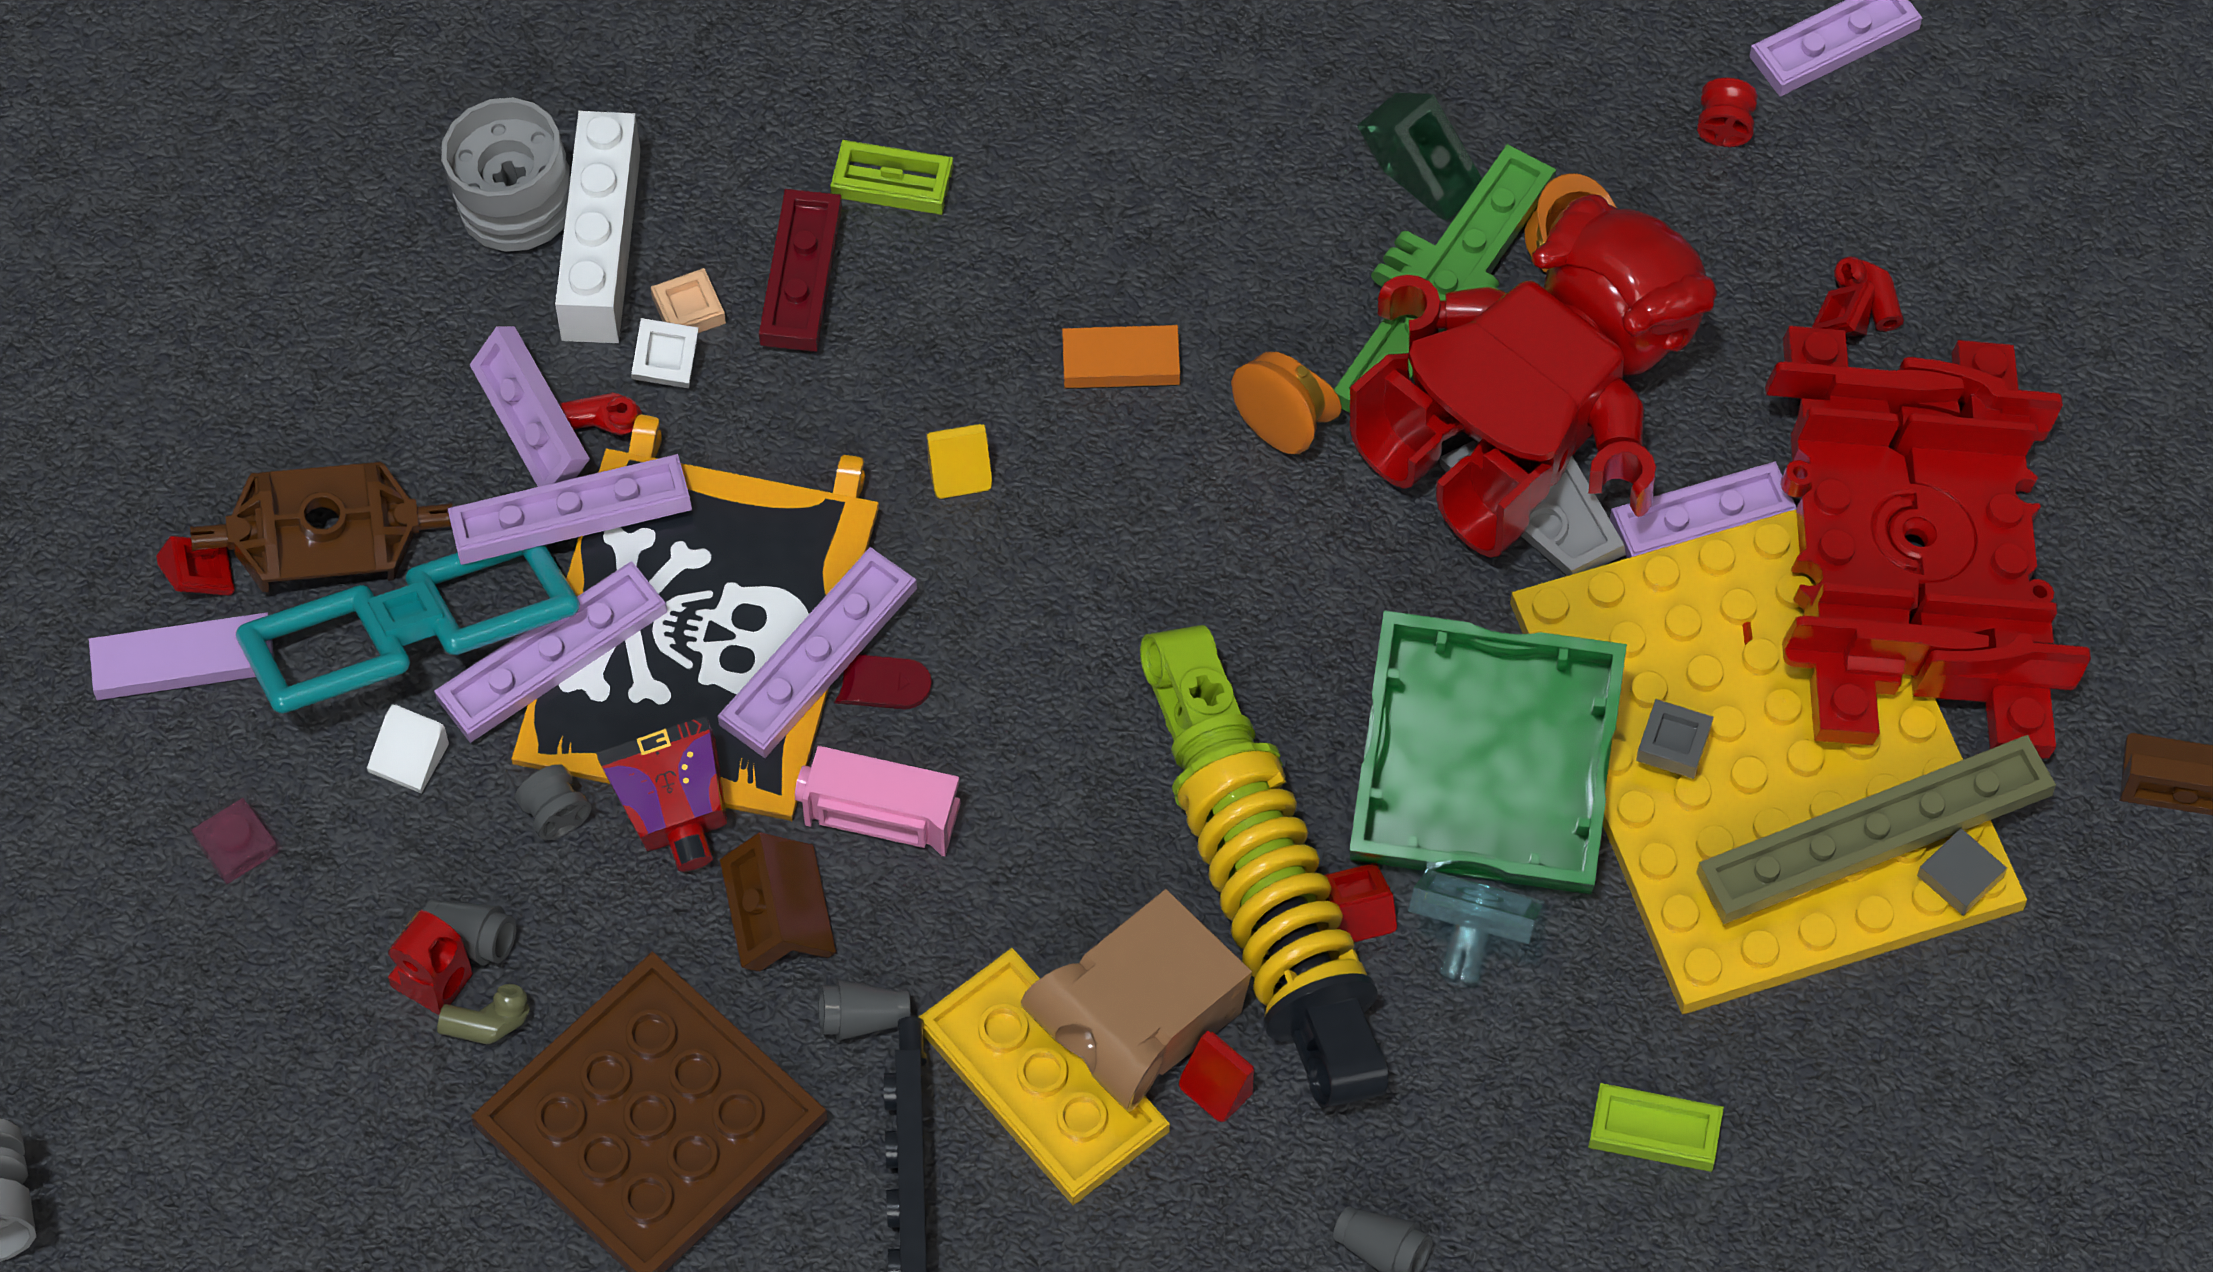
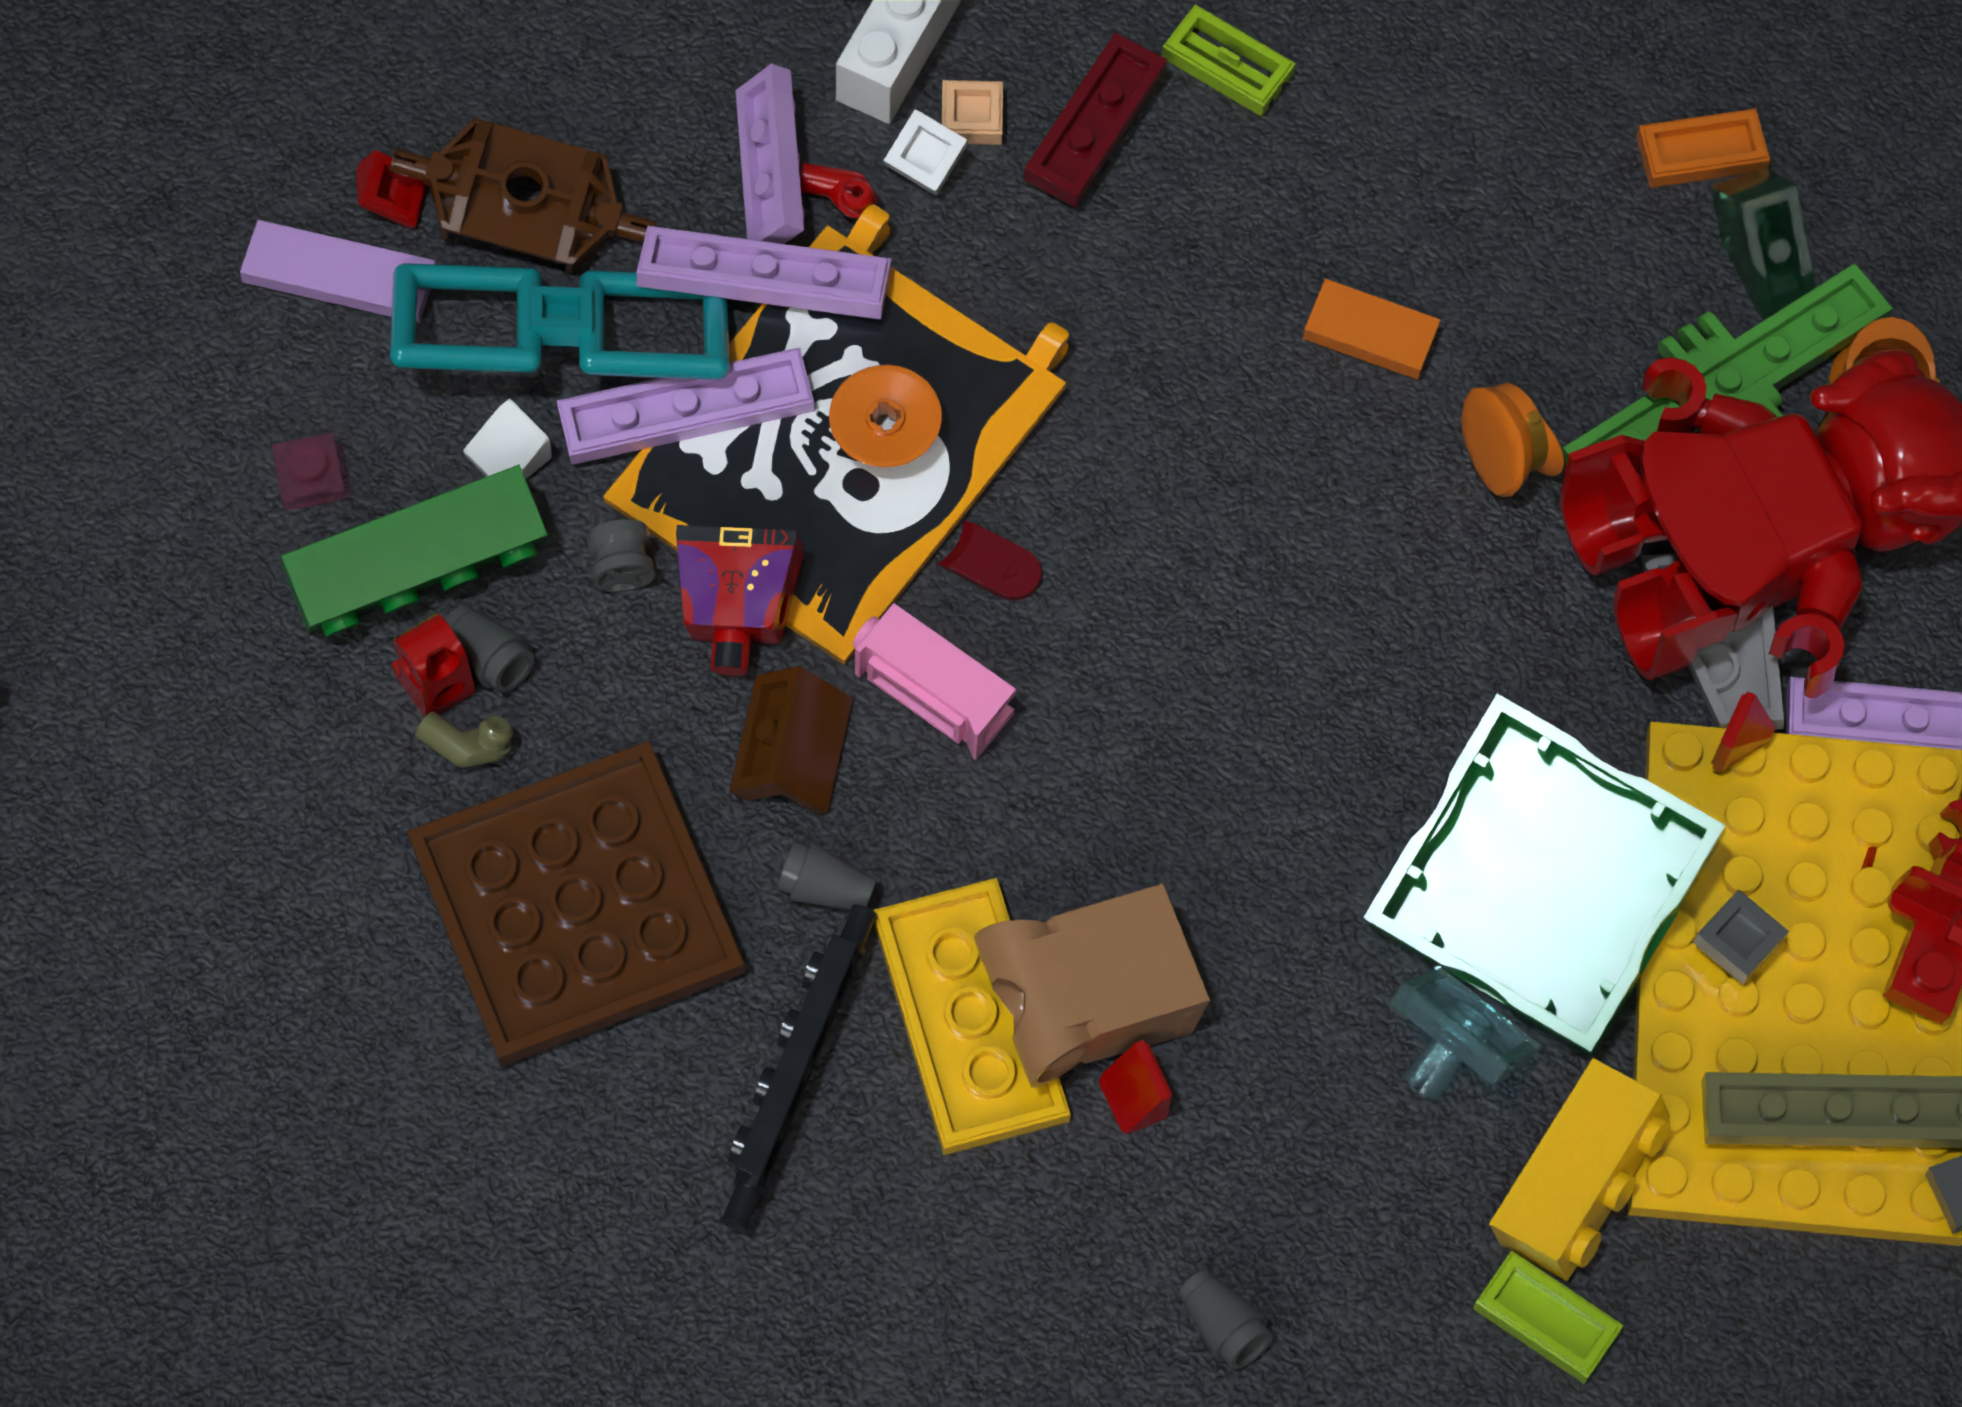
camera: 20 degrees right, 5 degrees up
(364, 869) = (413, 550): none -> green brick
(738, 568) = (889, 392): none -> orange piece
(817, 652) = (939, 509): lavender tile -> none
(959, 461) = (1163, 373): yellow slope -> none
(1265, 871) = (1272, 905): piece -> none
(1332, 98) = (1702, 148): none -> orange tile
(1364, 901) = (1356, 972): red slope -> none
(1598, 566) = (1745, 733): none -> red slope
(1631, 989) = (1581, 1170): none -> yellow brick

